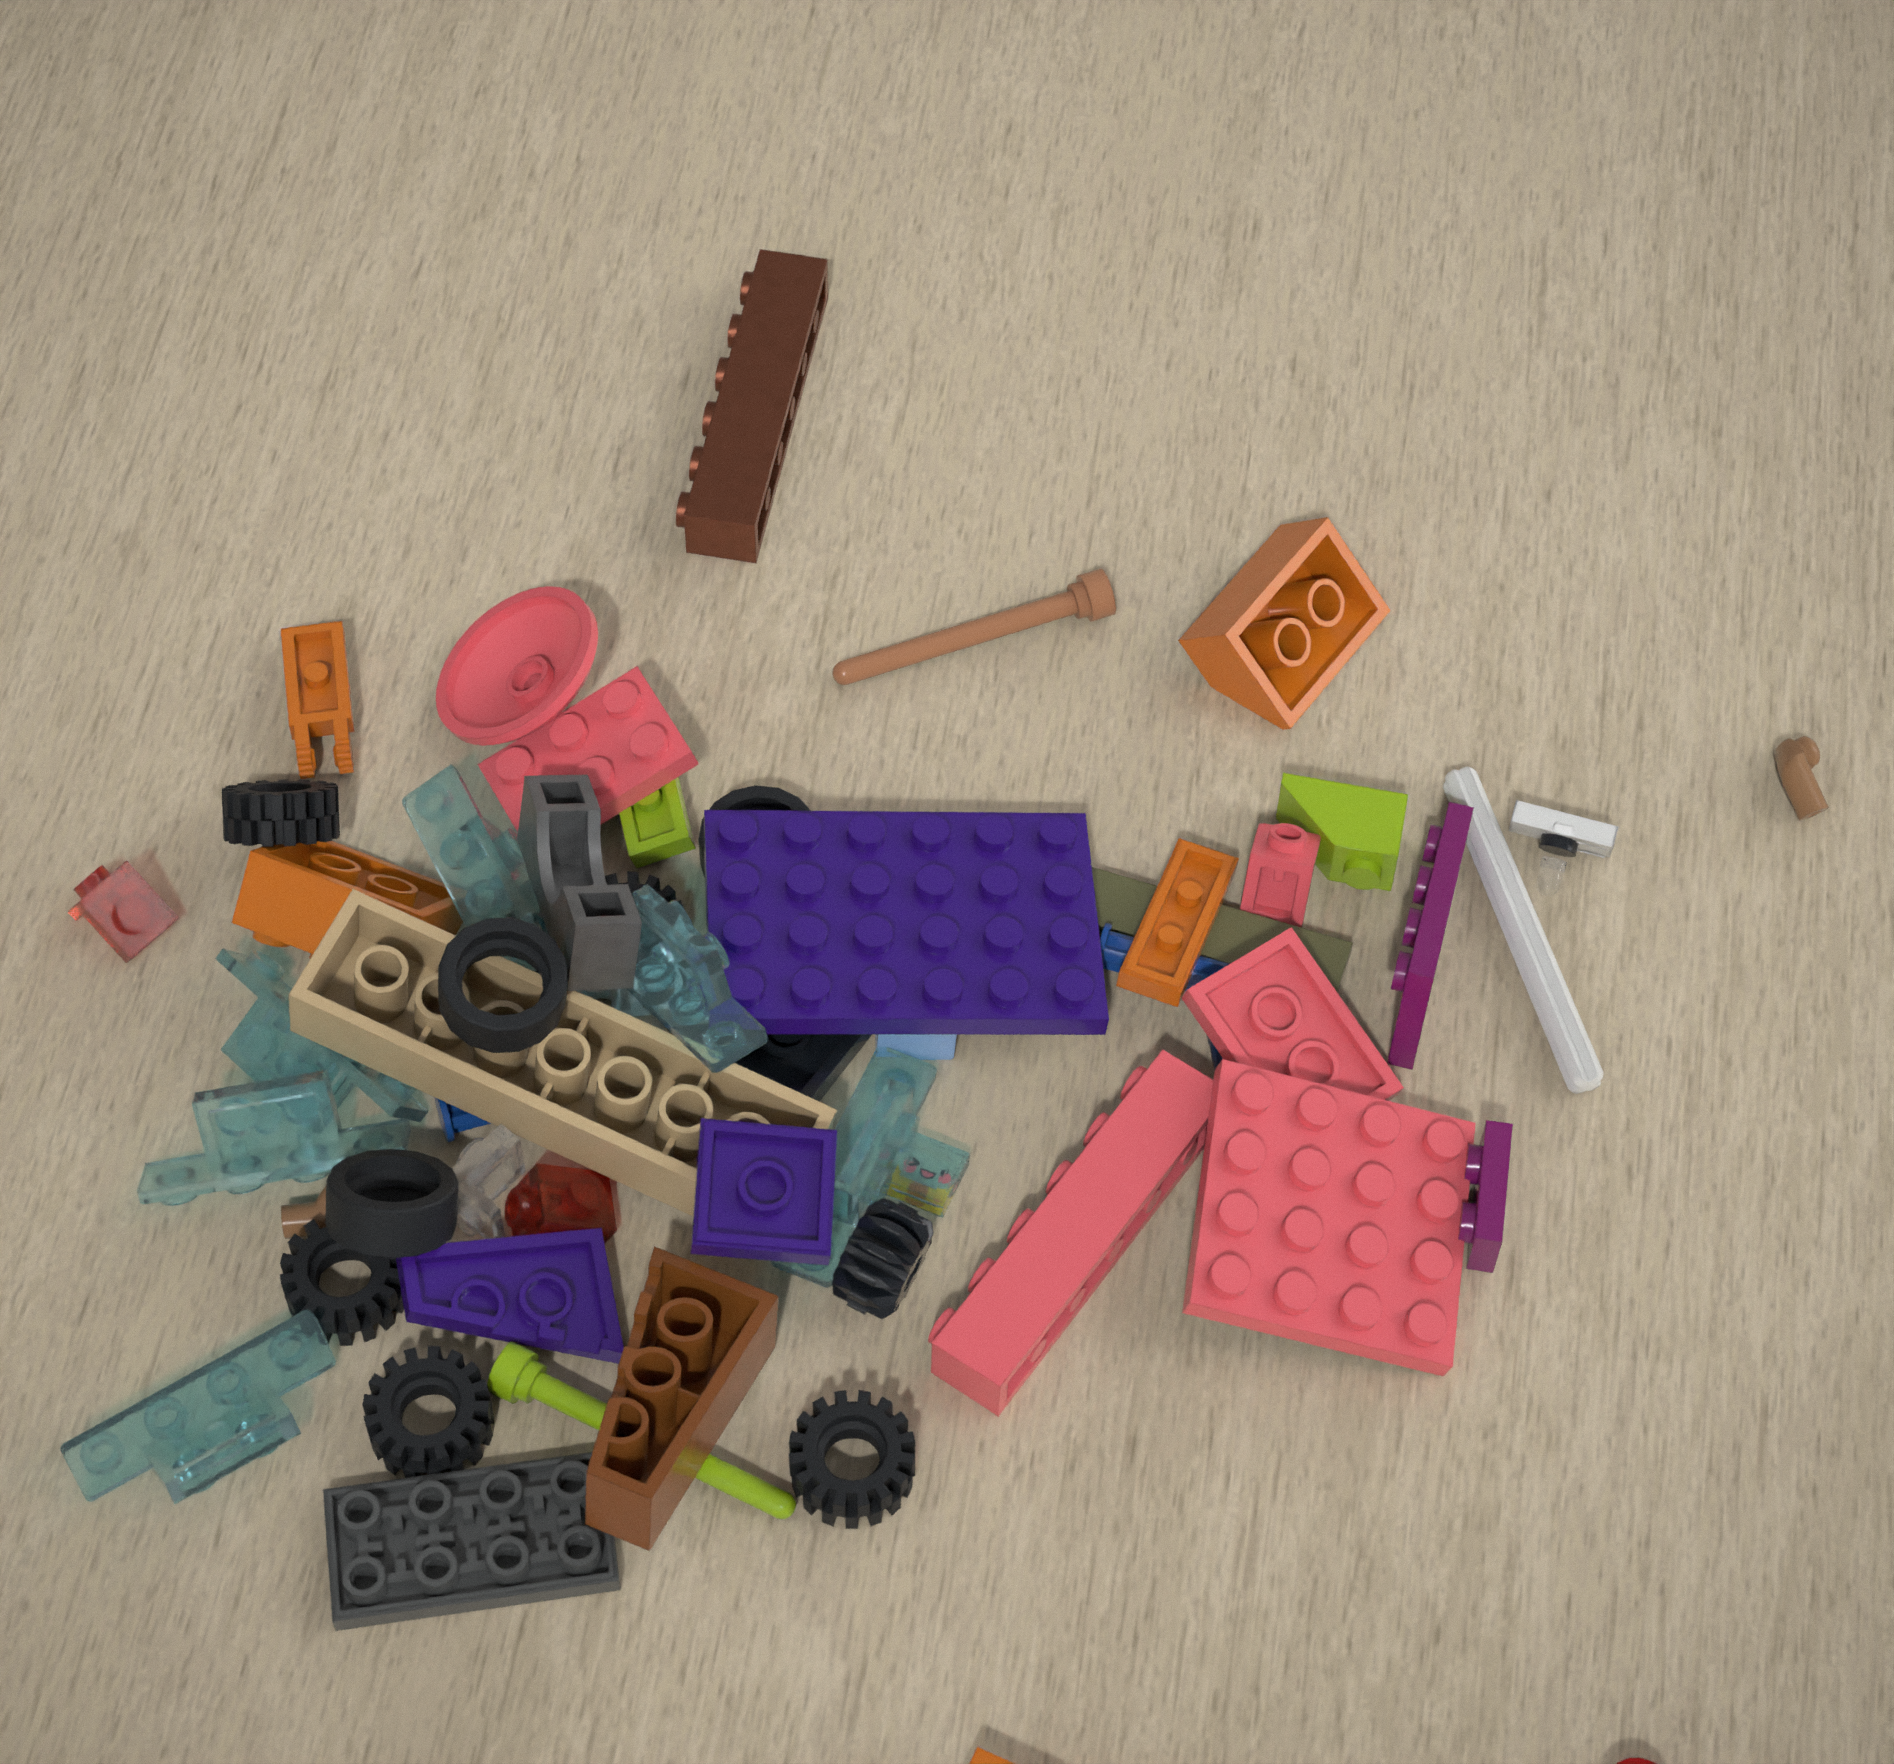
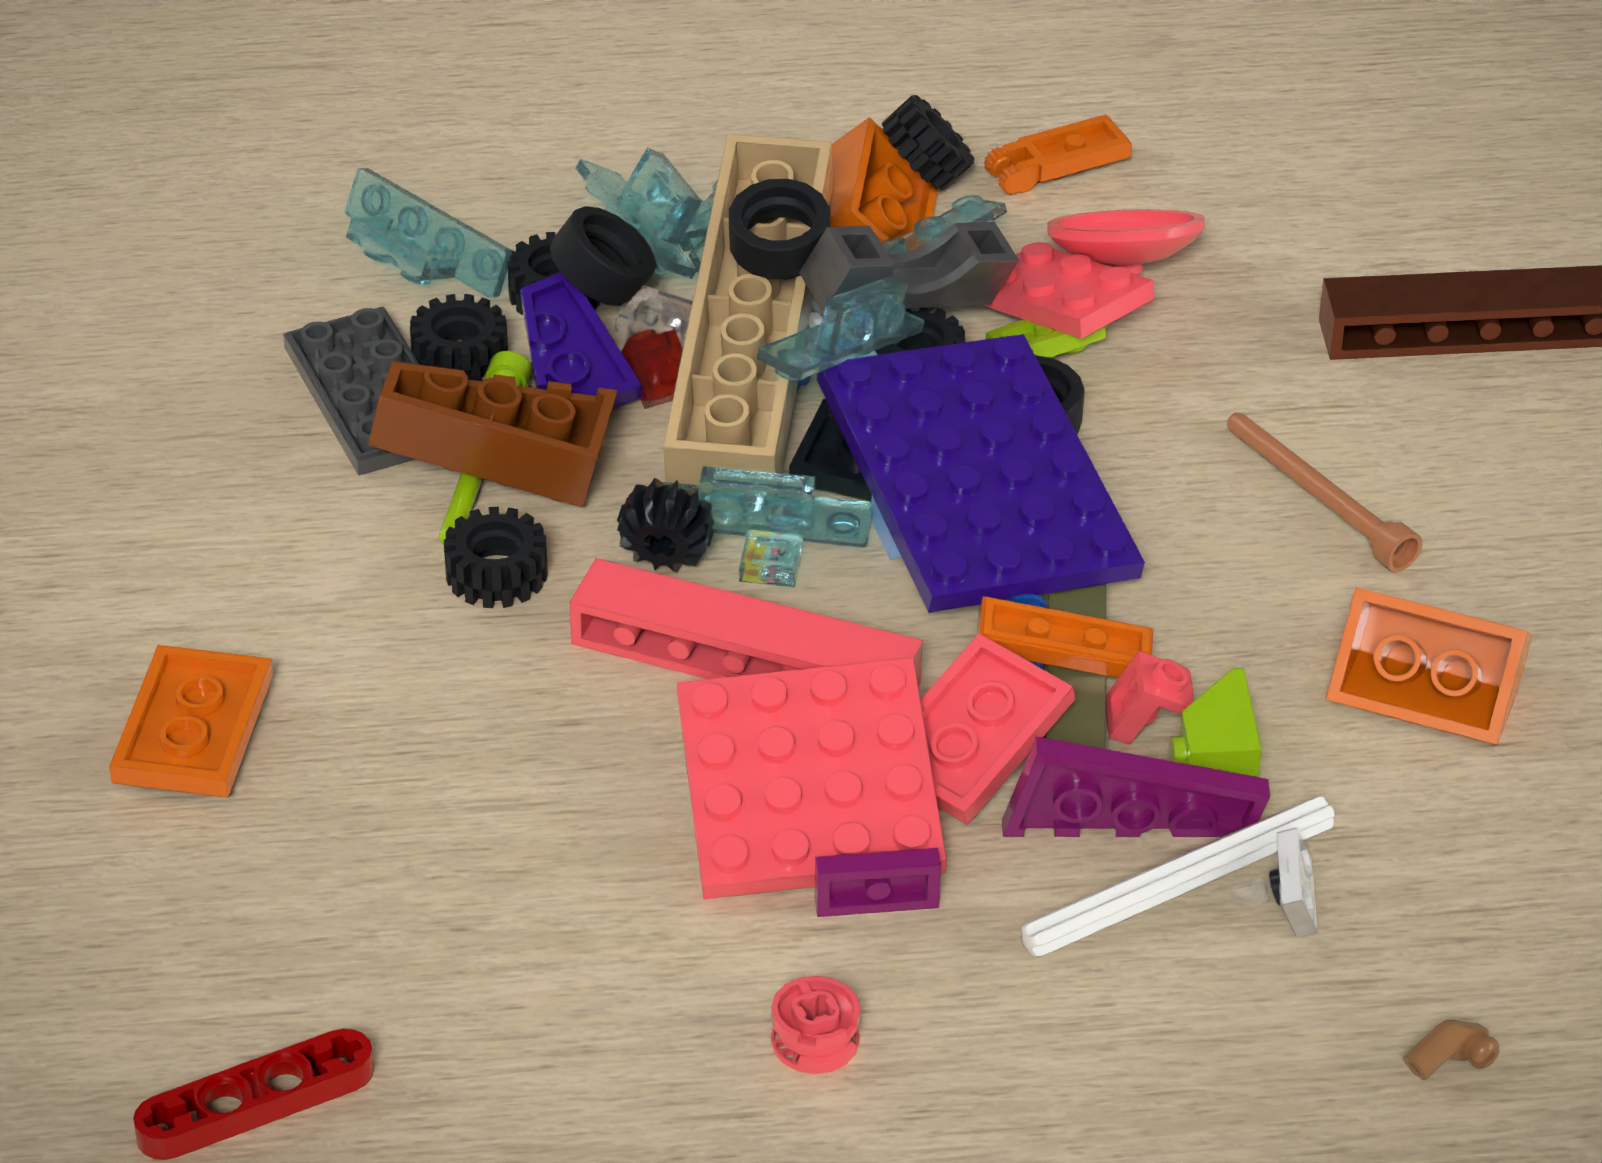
camera: 75 degrees right, 15 degrees down
(122, 909) = (819, 104): clear red bracket -> none
(764, 1192) = (679, 425): dark purple tile -> none
(1674, 1307) = (815, 1024): none -> coral wheel

